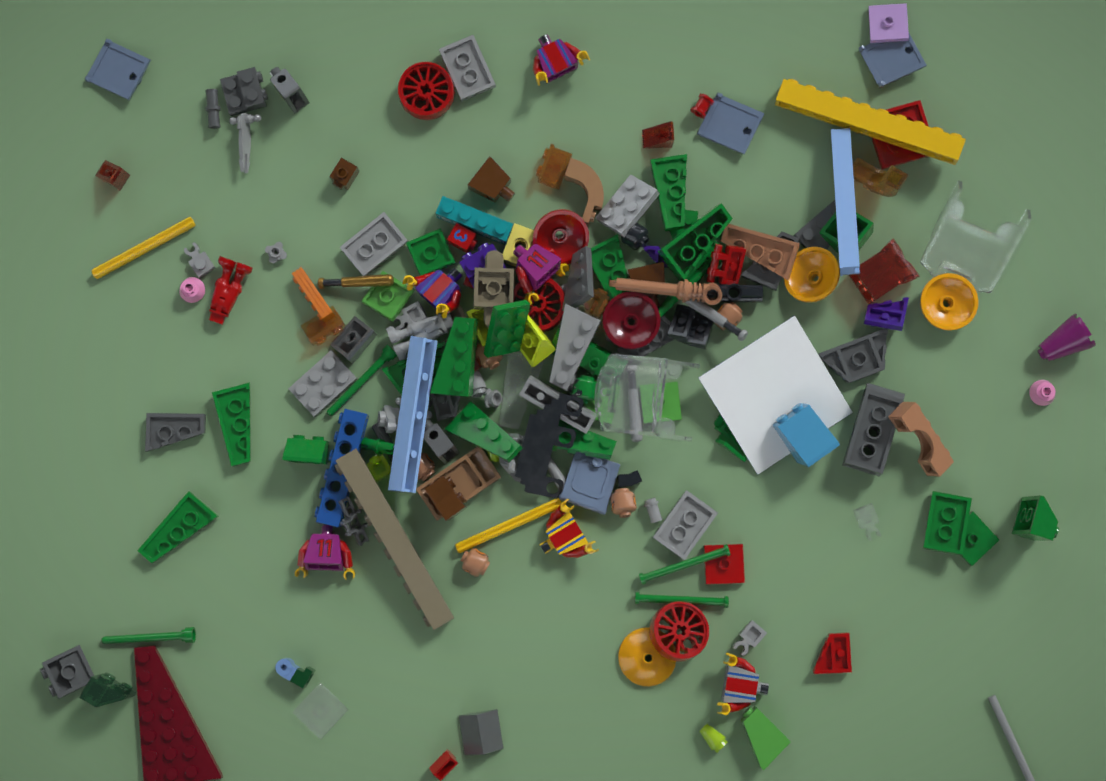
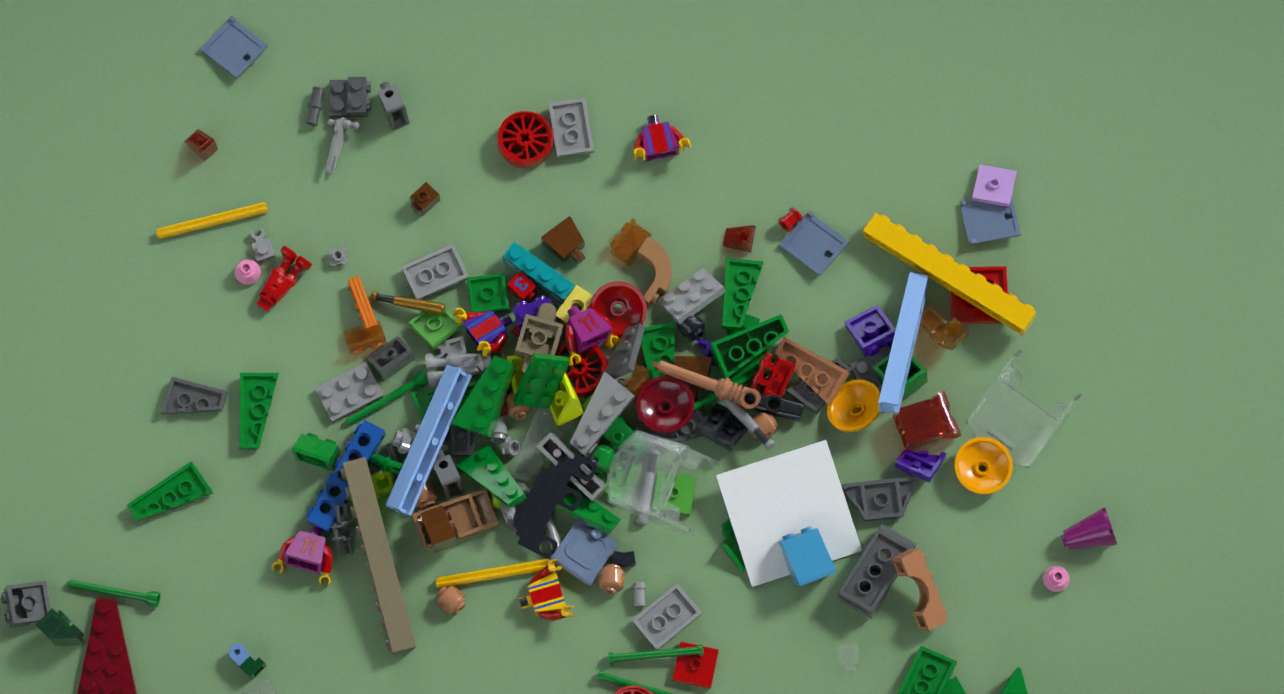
camera: 15 degrees right, 10 degrees down
(808, 196) = (871, 330): none -> dark purple plate

